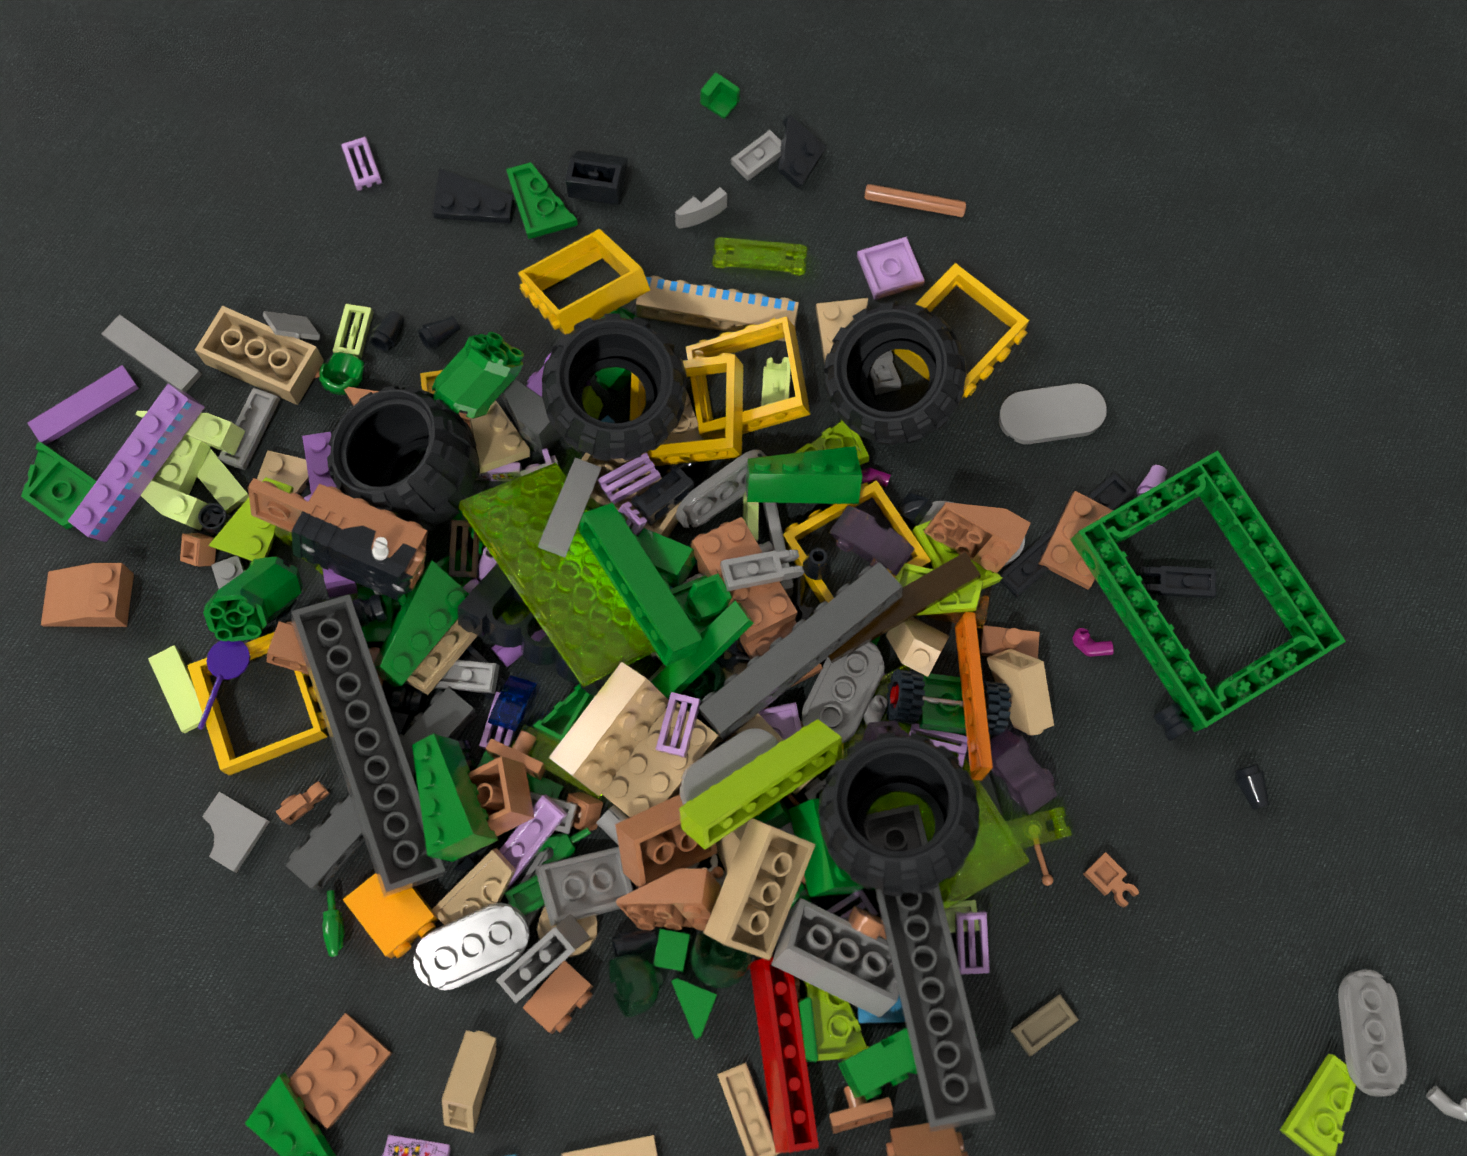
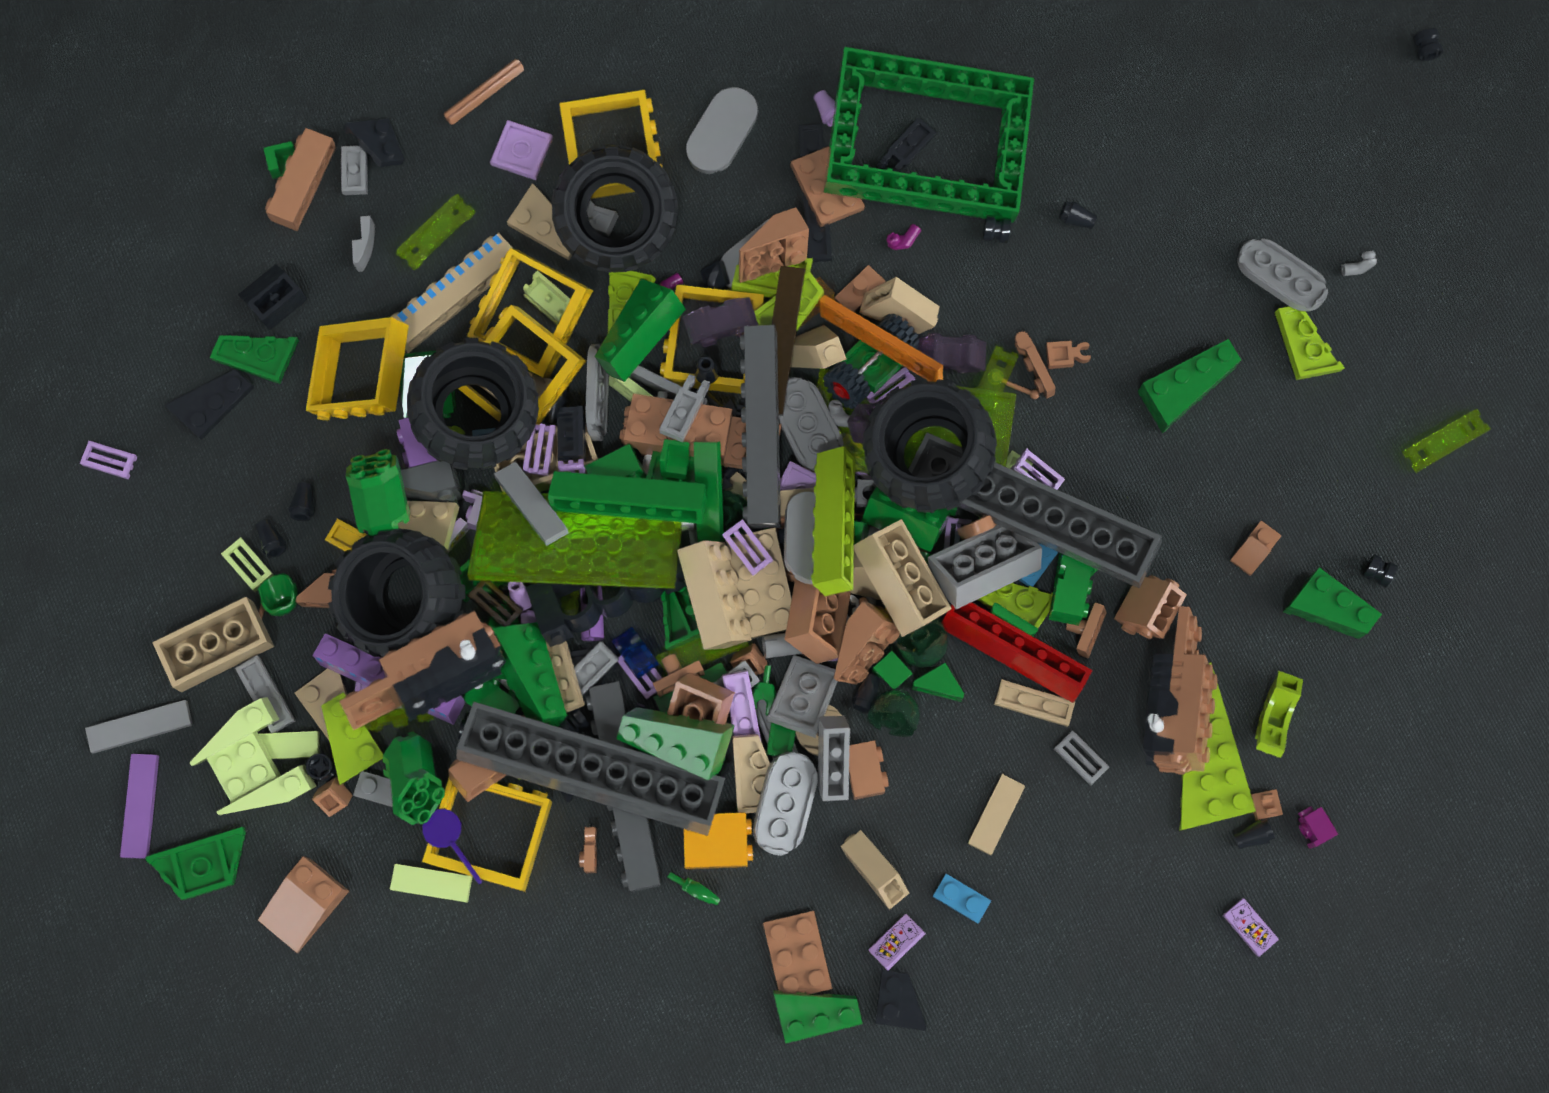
camera: 50 degrees left, 5 degrees up
(136, 463) = (236, 789): medium lavender brick -> none
(234, 830) = (571, 913): light grey tile -> none
(291, 325) = (209, 604): light grey piece -> none
(370, 610) = (491, 696): black wheel -> none
(715, 121) = (300, 179): none -> nougat brick
(1044, 1025) = (1123, 471): dark tan tile -> none
(1075, 855) = (1034, 363): none -> nougat hinge
(1175, 1019) = (1179, 388): none -> green wedge

